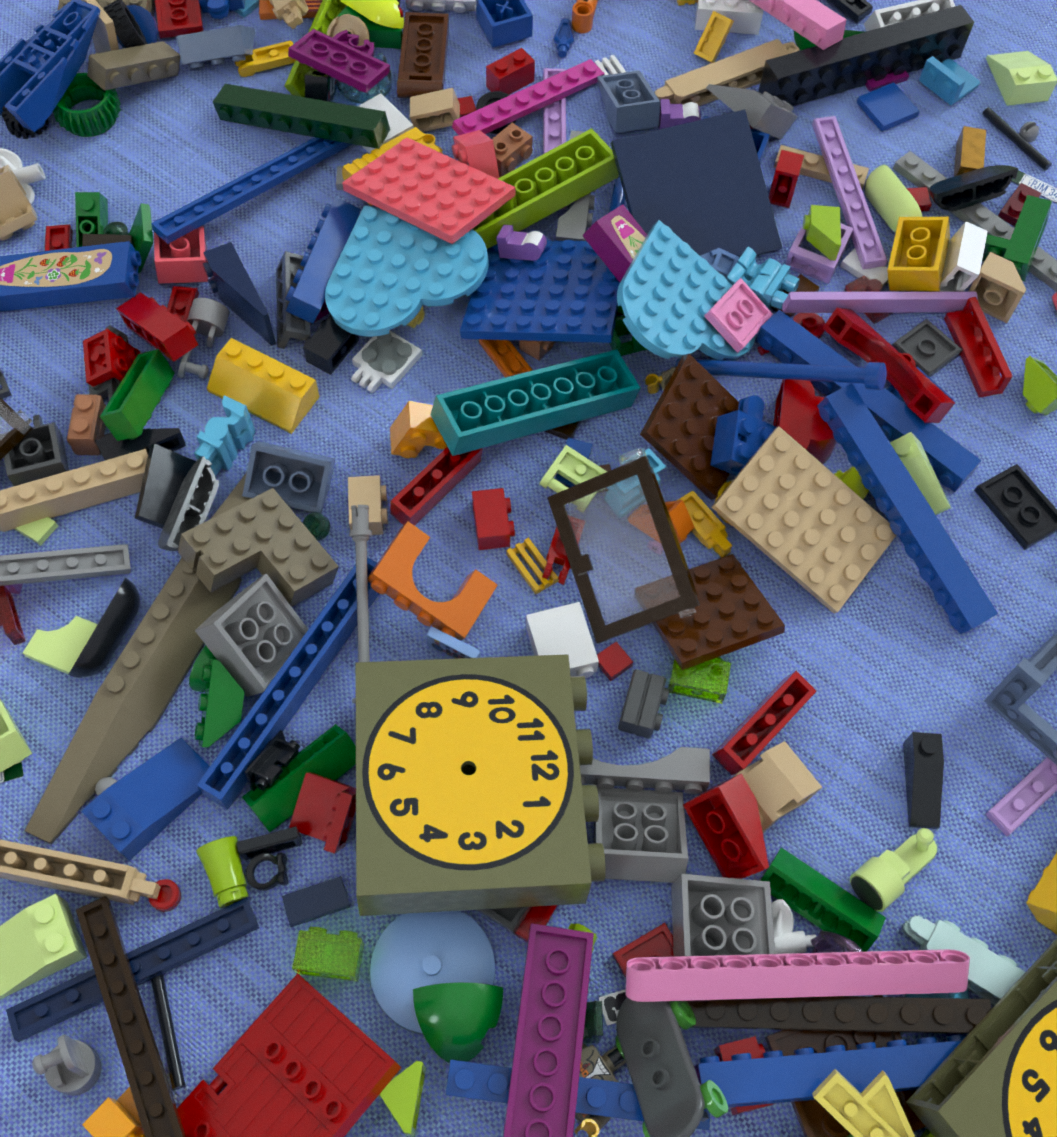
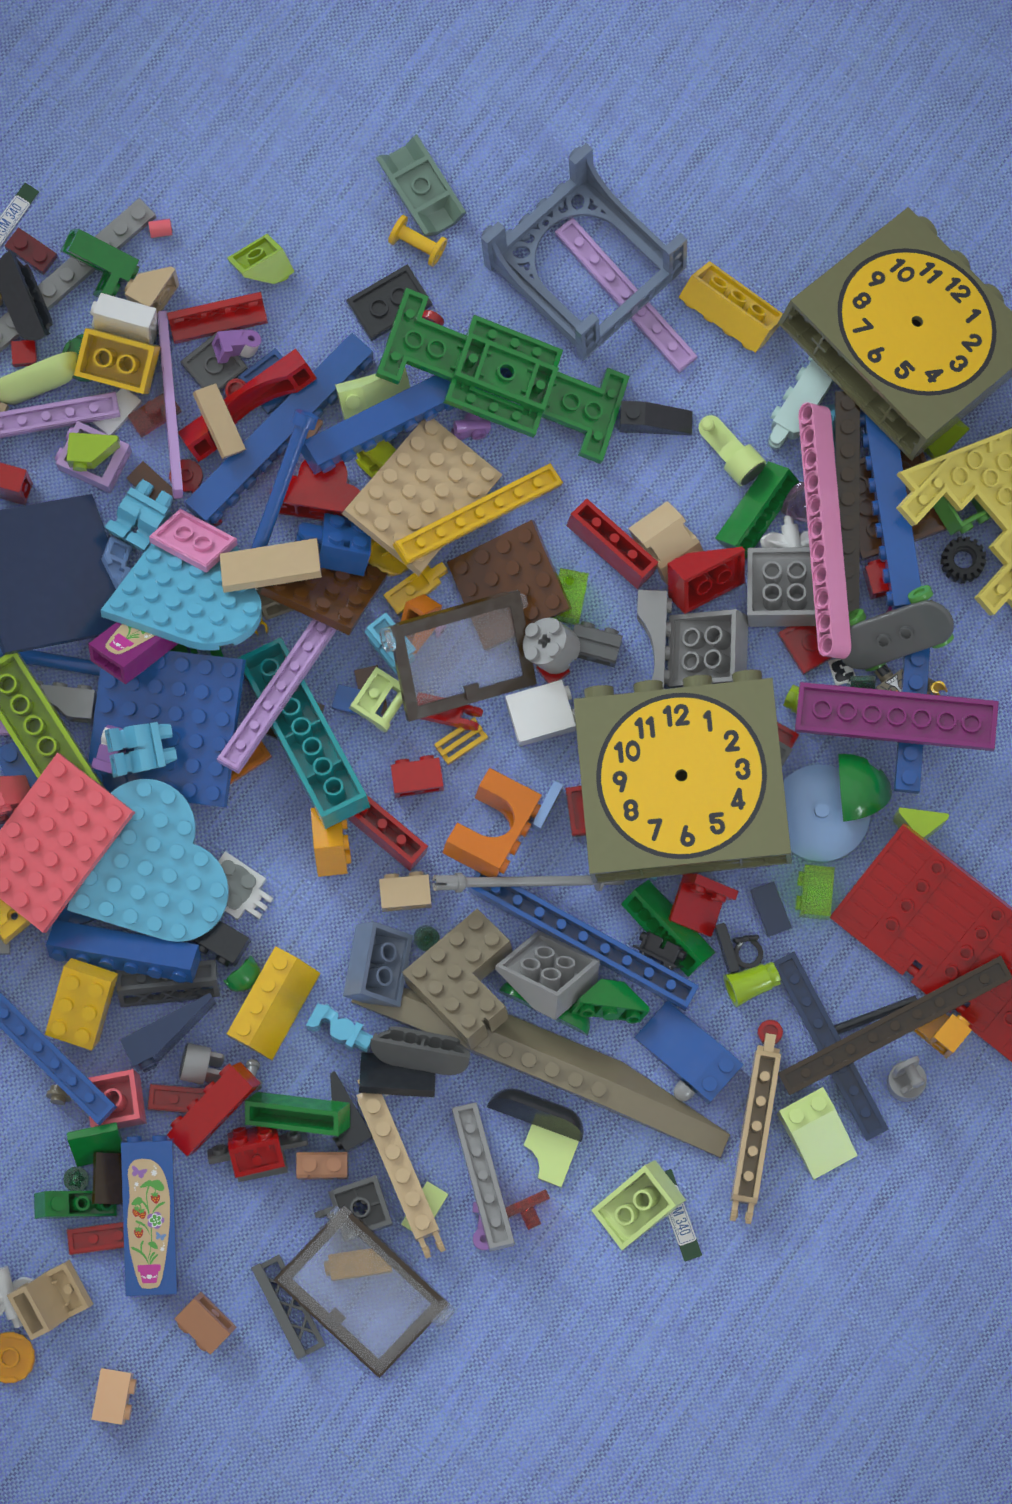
camera: 90 degrees left, 15 degrees up
(276, 224) = (81, 1004): none -> yellow brick
(291, 356) = (243, 977): none -> green hair
(522, 260) = (147, 748): none -> medium azure hips
(572, 371) = (275, 696): none -> lavender tile
(637, 646) = (550, 645): none -> light grey brick
(713, 364) = (270, 565): none -> tan tile
(788, 574) = (477, 514): none -> yellow tile
(866, 332) = (219, 421): none -> tan tile
(888, 582) = (472, 427): none -> medium lavender plate
(949, 634) = (476, 362): none -> green piece
(952, 360) = (235, 343): none -> medium lavender leg
(1007, 543) = (433, 317): none -> red tile

